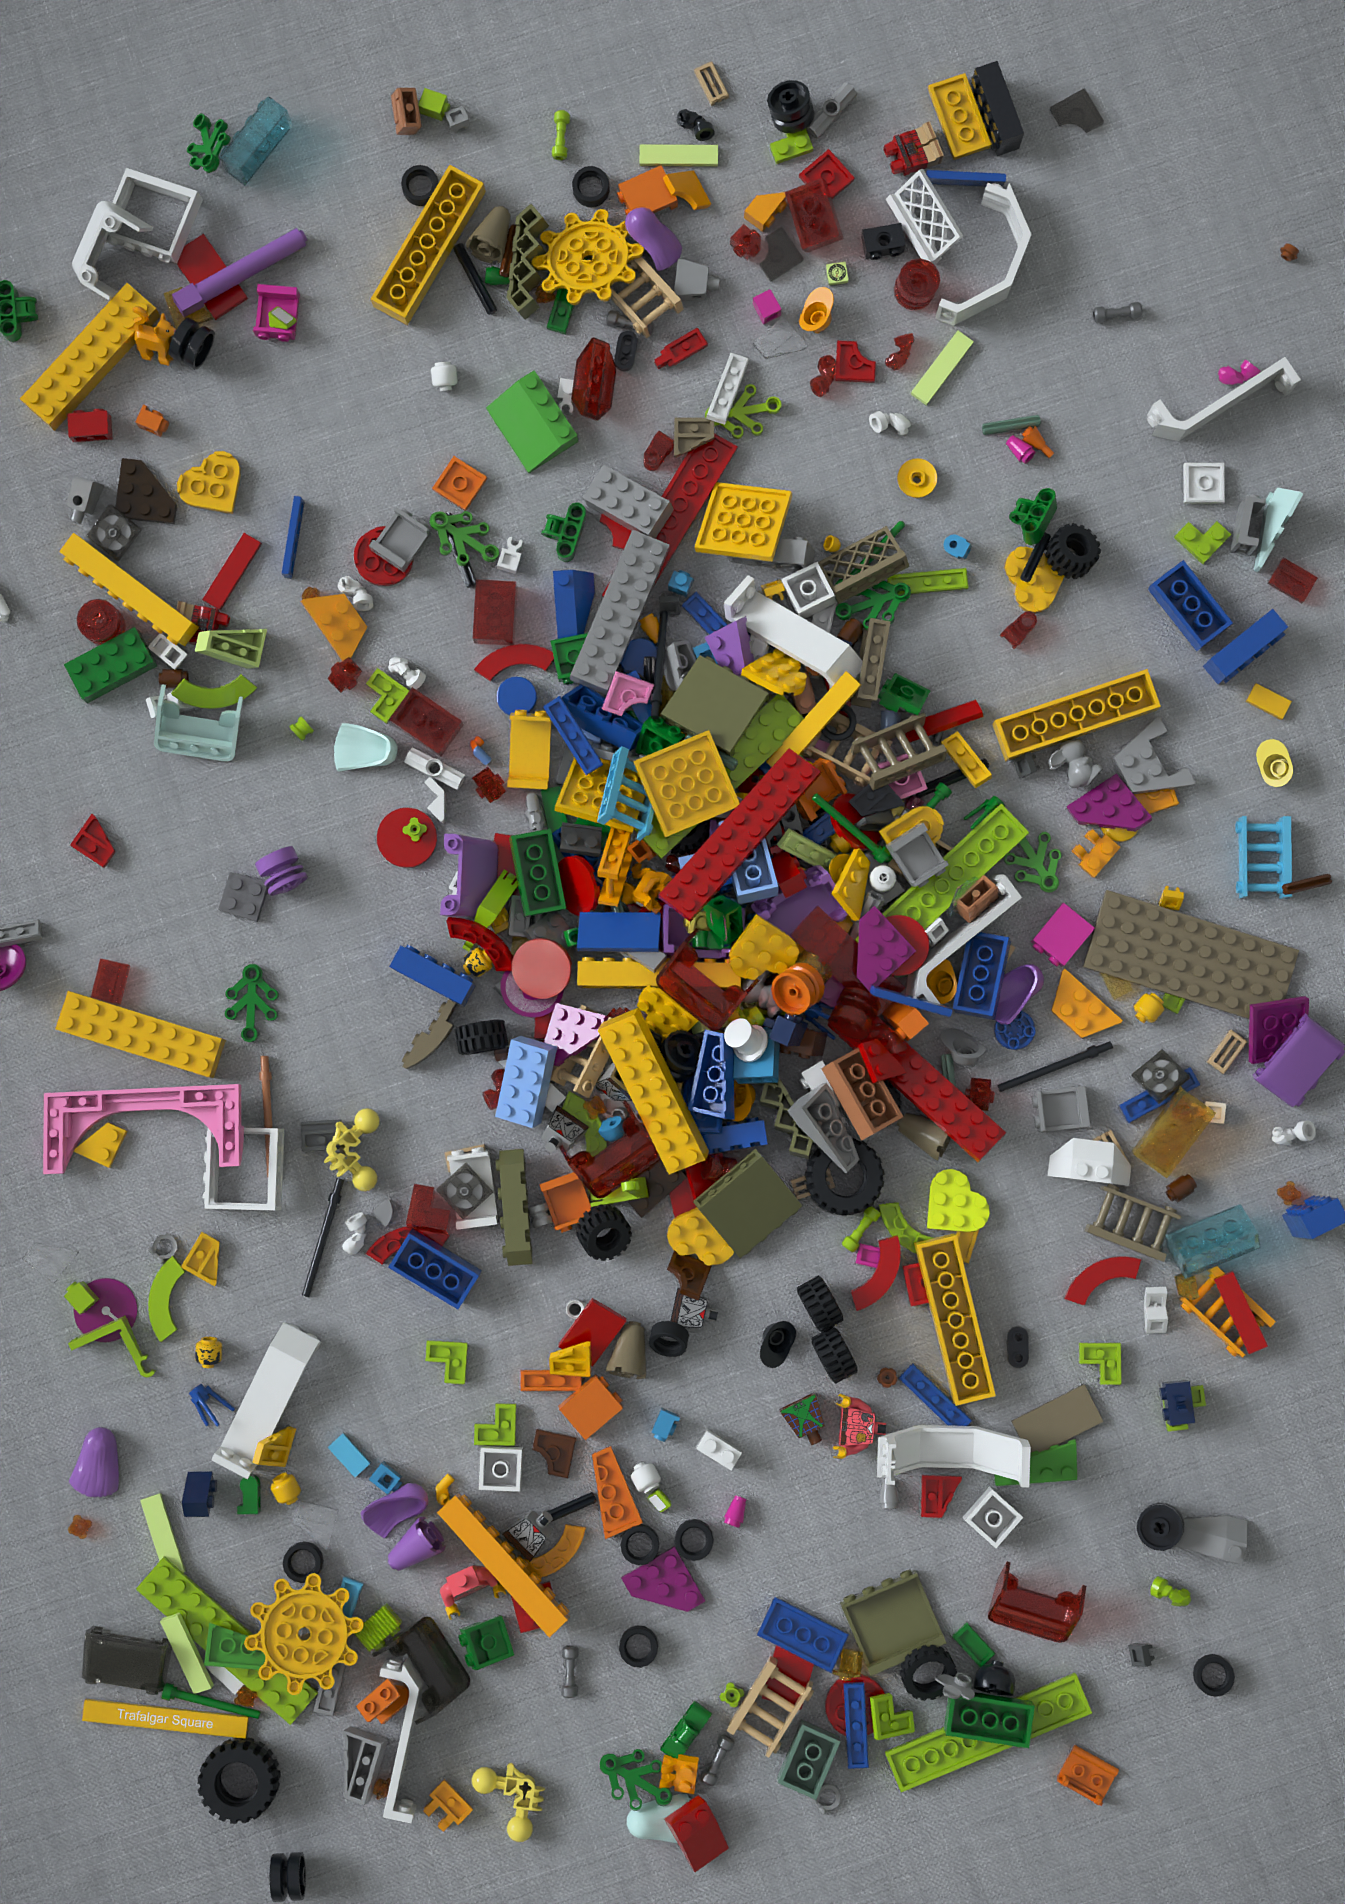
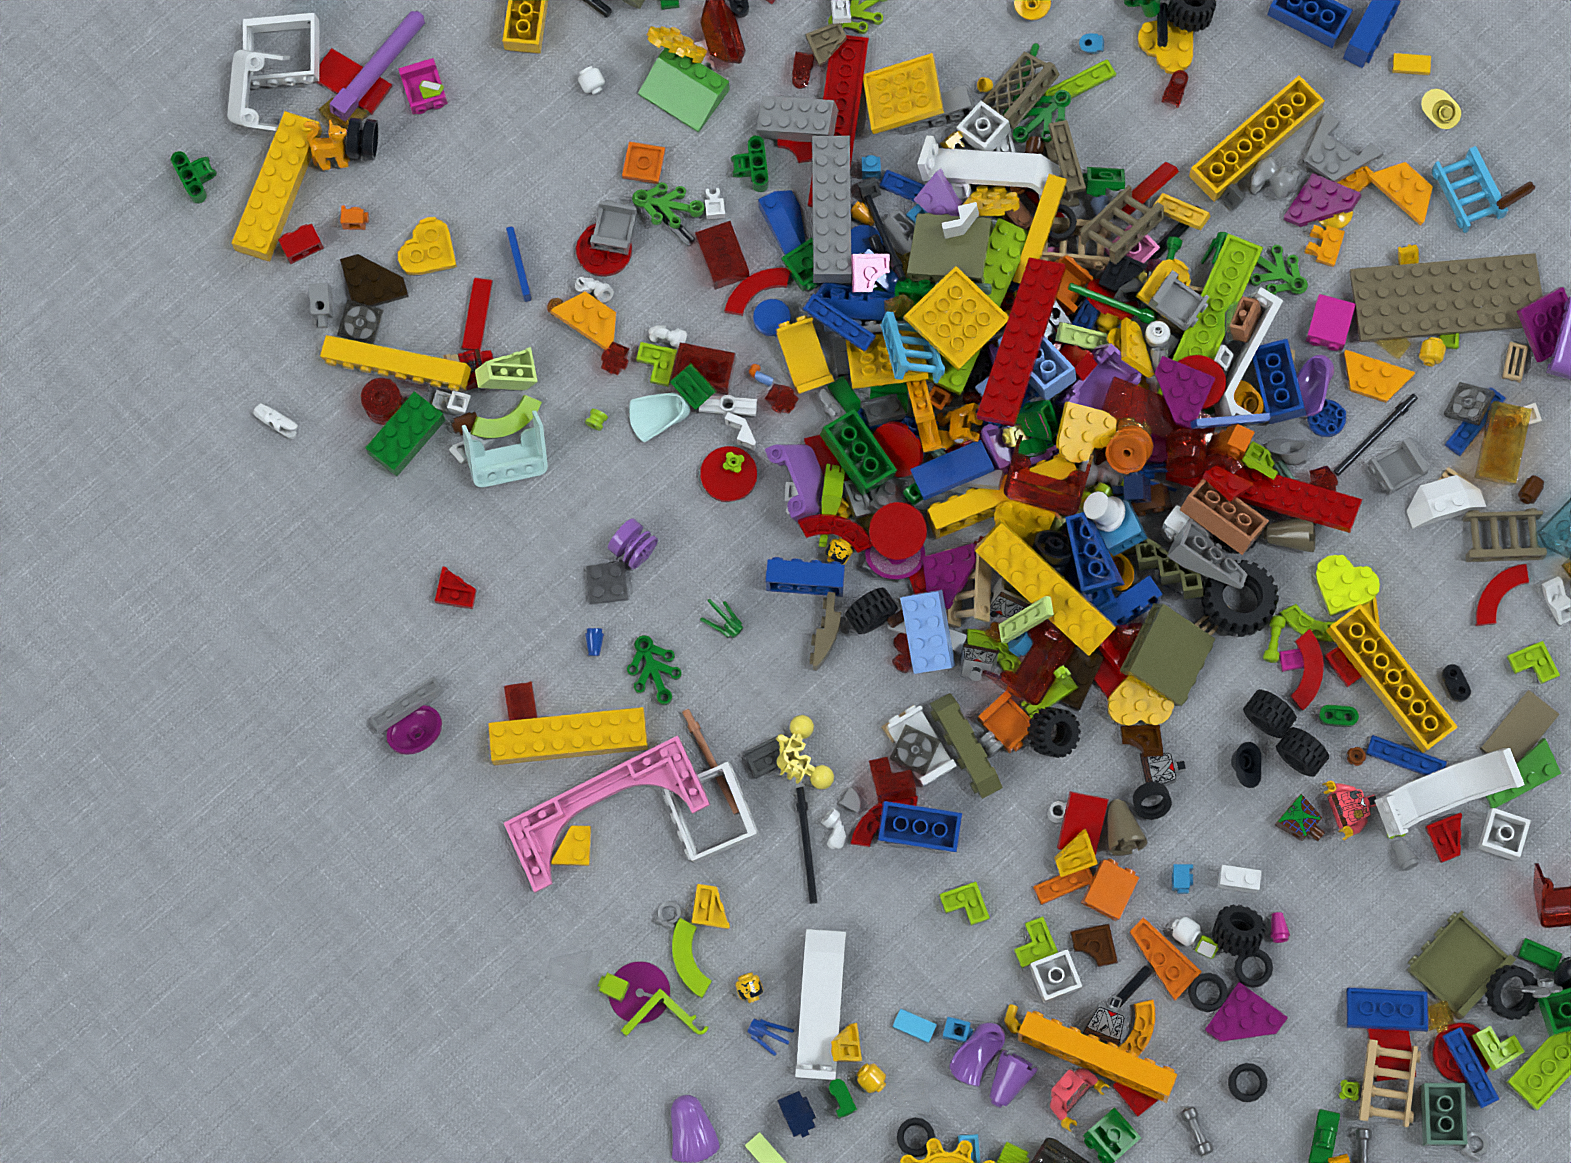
camera: 25 degrees left, 10 degrees down
(206, 949) = (594, 641): none -> blue cone
(343, 992) = (732, 626): none -> green plant
(404, 738) = (693, 386): none -> green plate
(541, 372) = (676, 43): none -> yellow plate
(621, 1115) = (1026, 619): none -> yellowish green tile
(639, 743) = (899, 305): none -> clear yellow bracket
(703, 1491) = (1238, 930): none -> black tyre
(744, 681) = (968, 214): none -> white slope
(888, 1331) = (1338, 715): none -> green plate
(925, 1048) = (1259, 458): none -> lime wing
(1201, 829) = (1405, 189): none -> light orange wing

